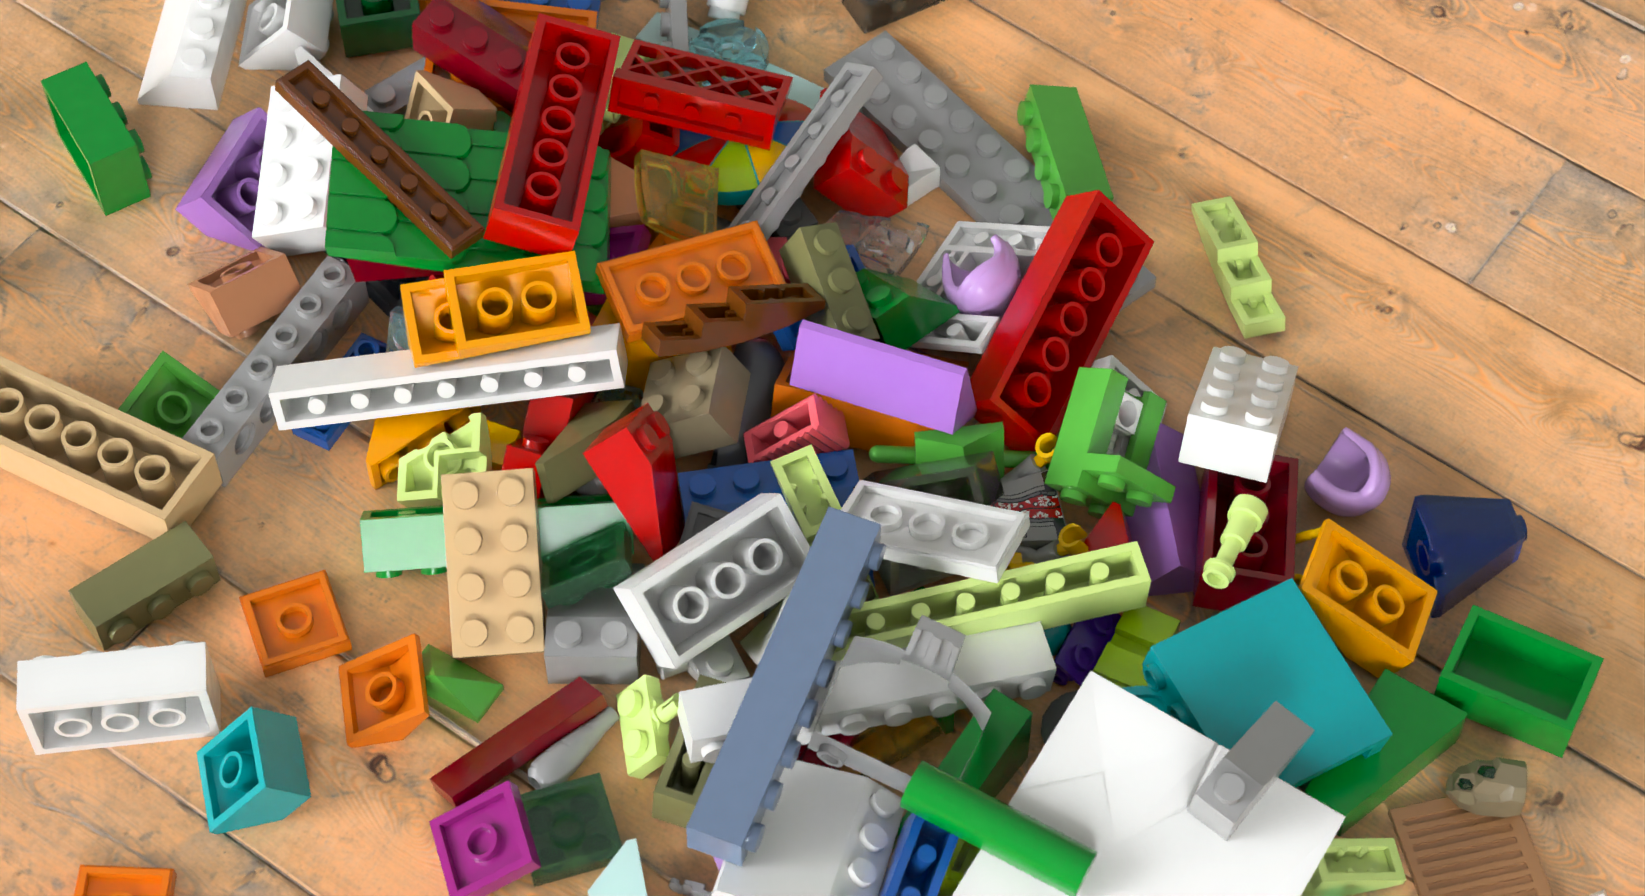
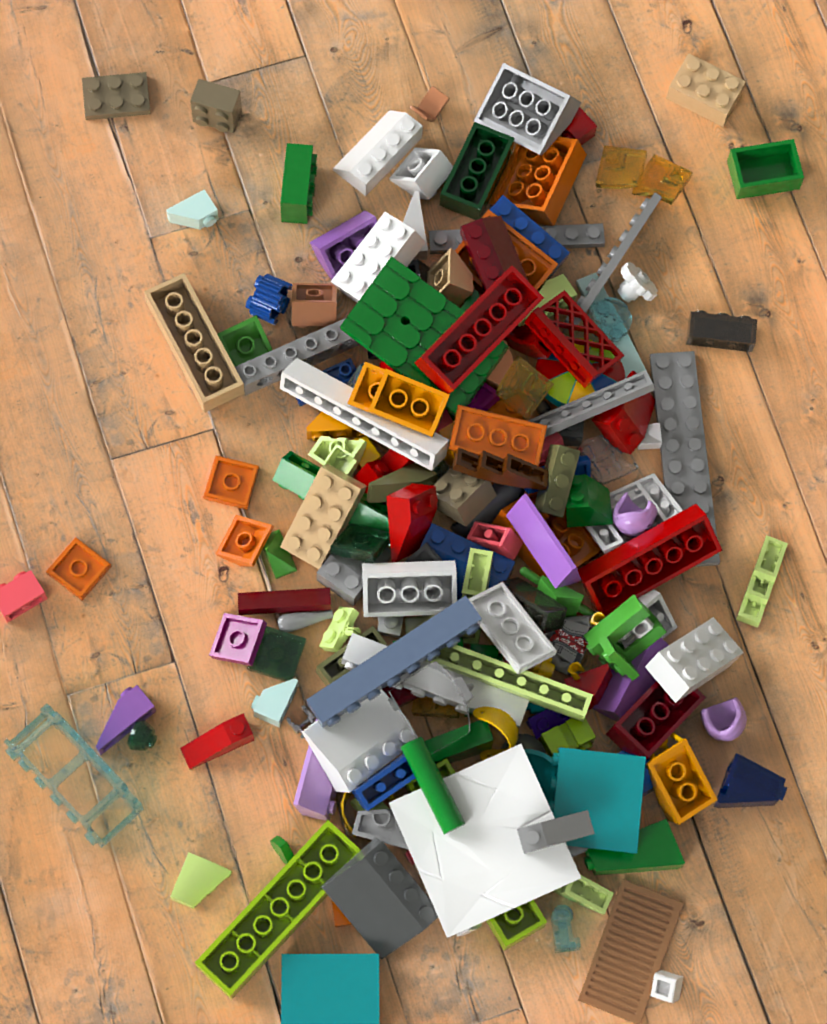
camera: 30 degrees right, 15 degrees up
(118, 697) = (134, 473): white brick -> none
(145, 585) = (180, 425): olive brick -> none
(166, 316) = (269, 298): none -> blue brick
(253, 771) = (169, 542): teal slope -> none
(379, 159) = (393, 295): reddish brown tile -> none
(1023, 670) = (501, 721): none -> yellow piece
(1061, 144) = (722, 474): bright green brick -> none
(1245, 518) = (651, 714): yellowish green piece -> none
(1489, 787) = (670, 899): dark tan rock -> none
(1518, 680) = (720, 862): green piece -> none

